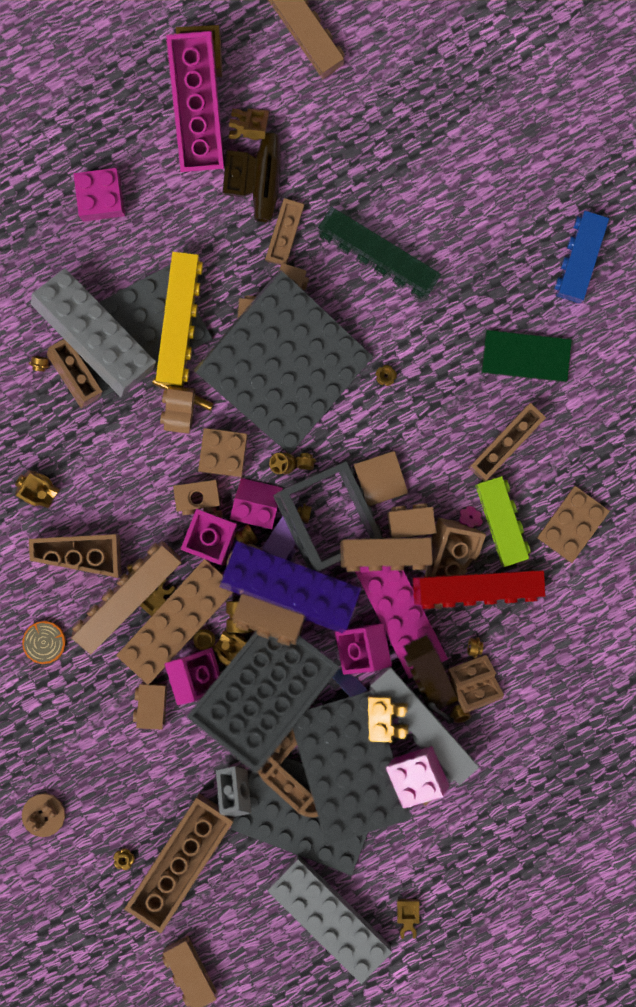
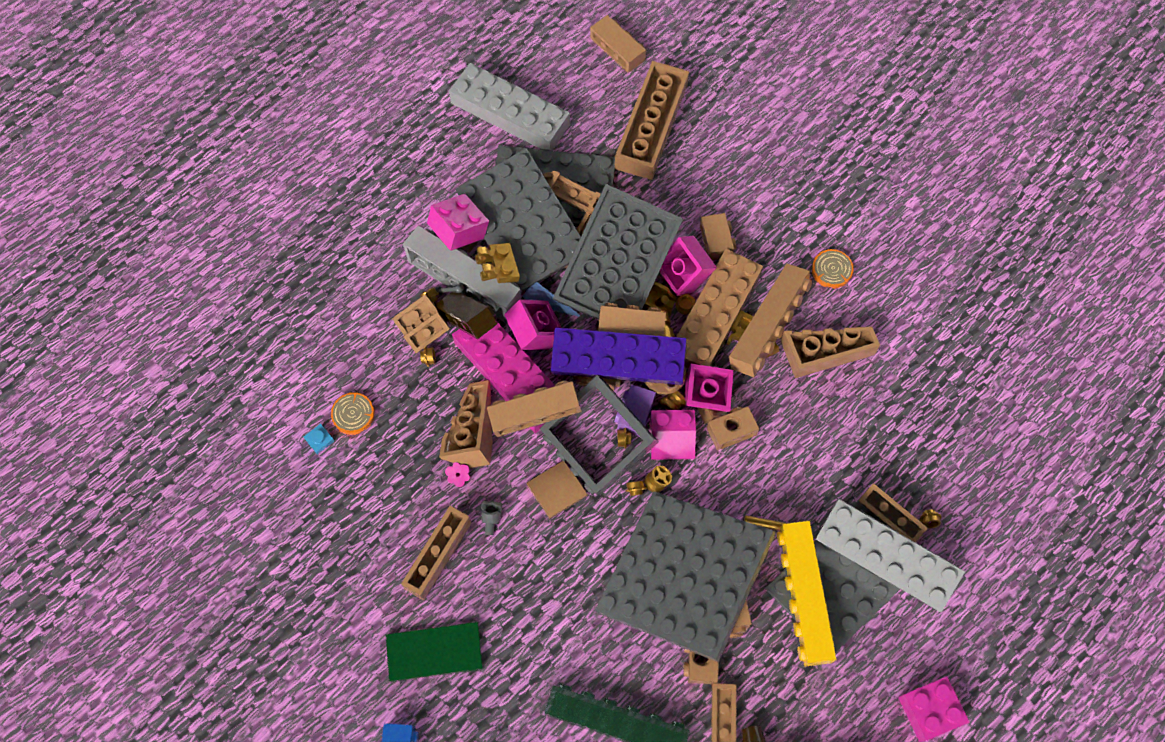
camera: 165 degrees right, 20 degrees down
(35, 821) = (779, 139): medium nougat plate -> none
(36, 489) = (889, 396): pearl gold hand -> none
(124, 853) = (701, 119): pearl gold plate -> none
(179, 409) = (777, 505): medium nougat brick -> none
(223, 453) = (719, 474): medium nougat brick -> none
(233, 792) = (622, 176): light grey brick -> none
(386, 369) = (570, 595): pearl gold plate -> none
(408, 914) = (441, 126): pearl gold plate -> none
(411, 522) = (516, 450): medium nougat brick -> none
(448, 468) = (490, 515): none -> dark grey piece
(478, 587) = (435, 404): red brick -> none
(502, 521) = (425, 475): lime brick -> none
(560, 606) = (352, 413): none -> dark tan tile
(573, 524) = (353, 493): medium nougat plate -> none
(597, 587) = (318, 439): none -> dark azure plate

